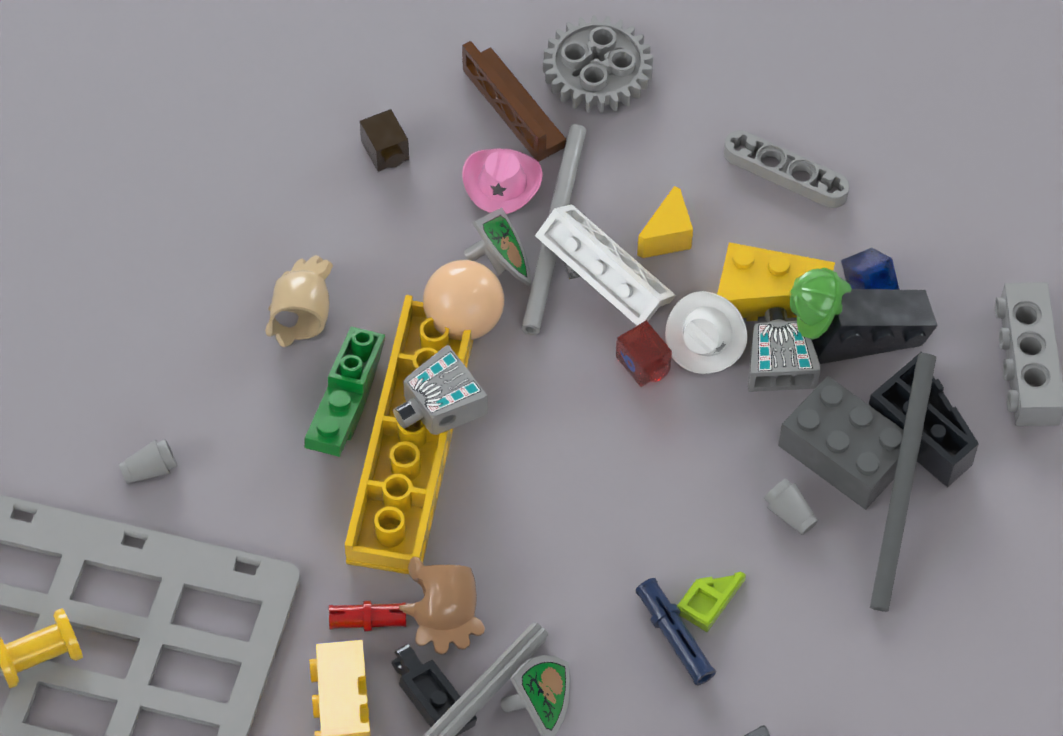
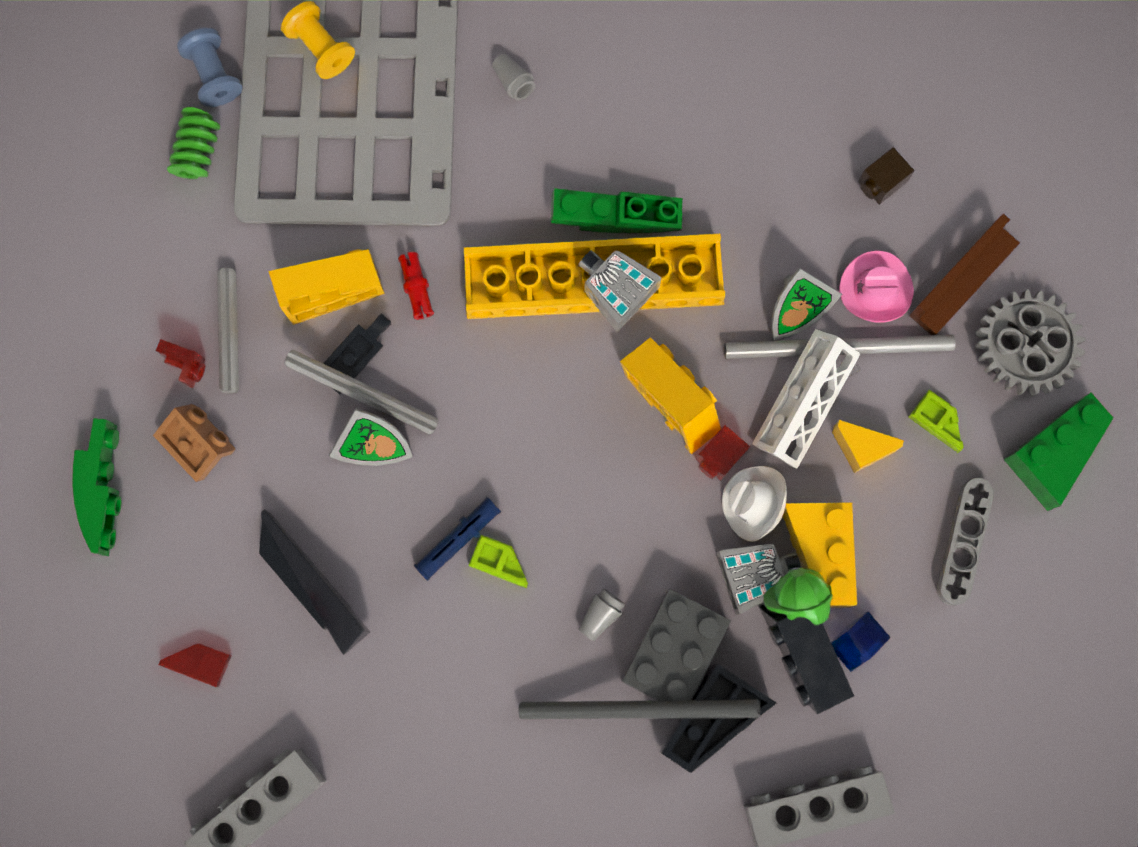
camera: 80 degrees right, 20 degrees up
(302, 293) = (695, 148): tan piece -> none
(447, 607) = (433, 342): medium nougat piece -> none
(463, 298) = (731, 284): light nougat piece -> none
(566, 381) = (673, 393): none -> yellow wedge
(654, 161) = (938, 419): none -> lime tile
(715, 65) = (1060, 451): none -> green wedge

